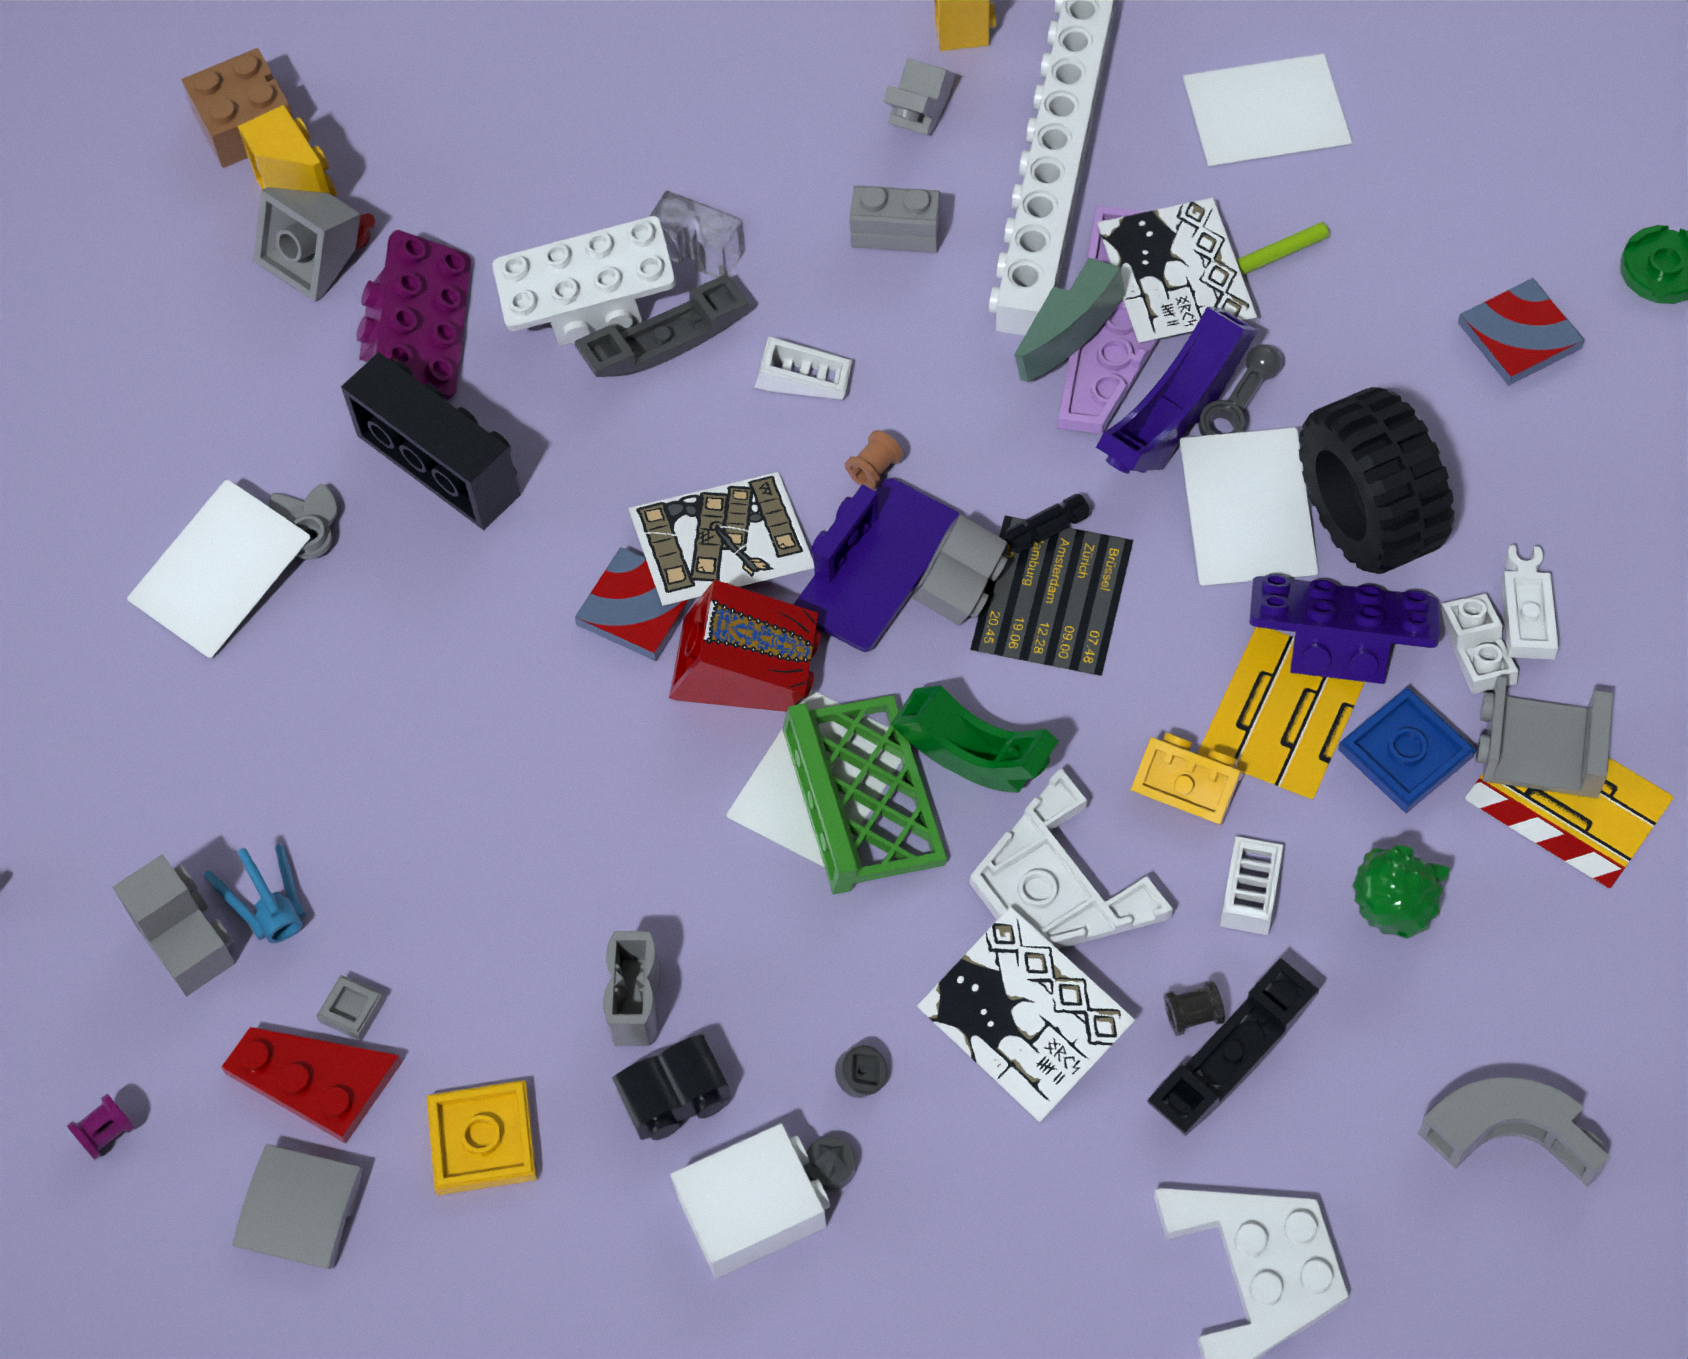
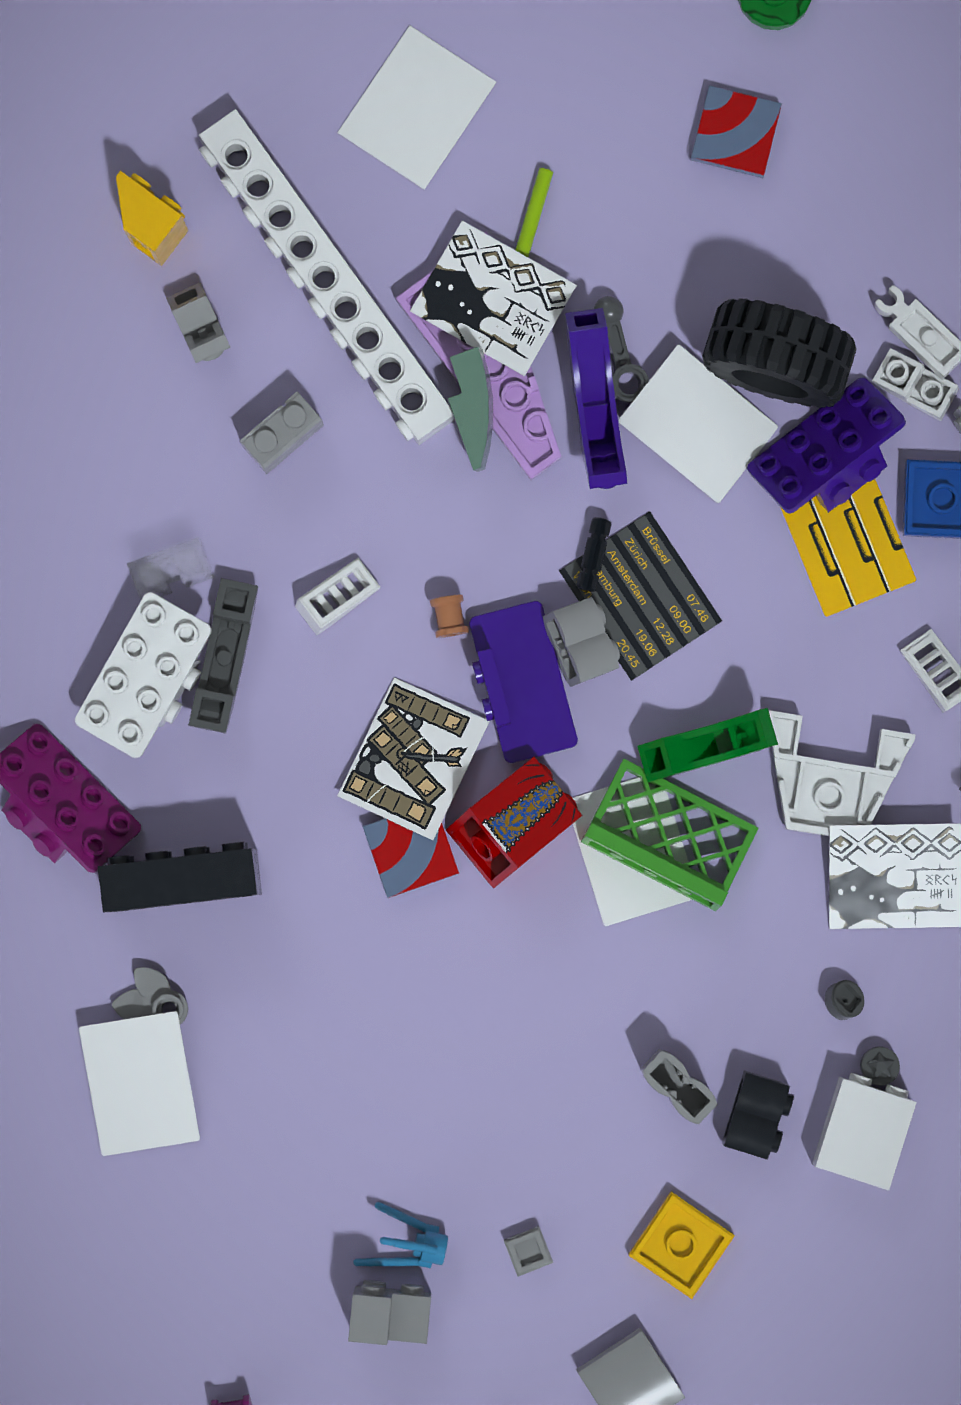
camera: 50 degrees left, 25 degrees up
(312, 1077) = (552, 1311): red wing -> none
(1187, 779) = (841, 641): yellow bracket -> none

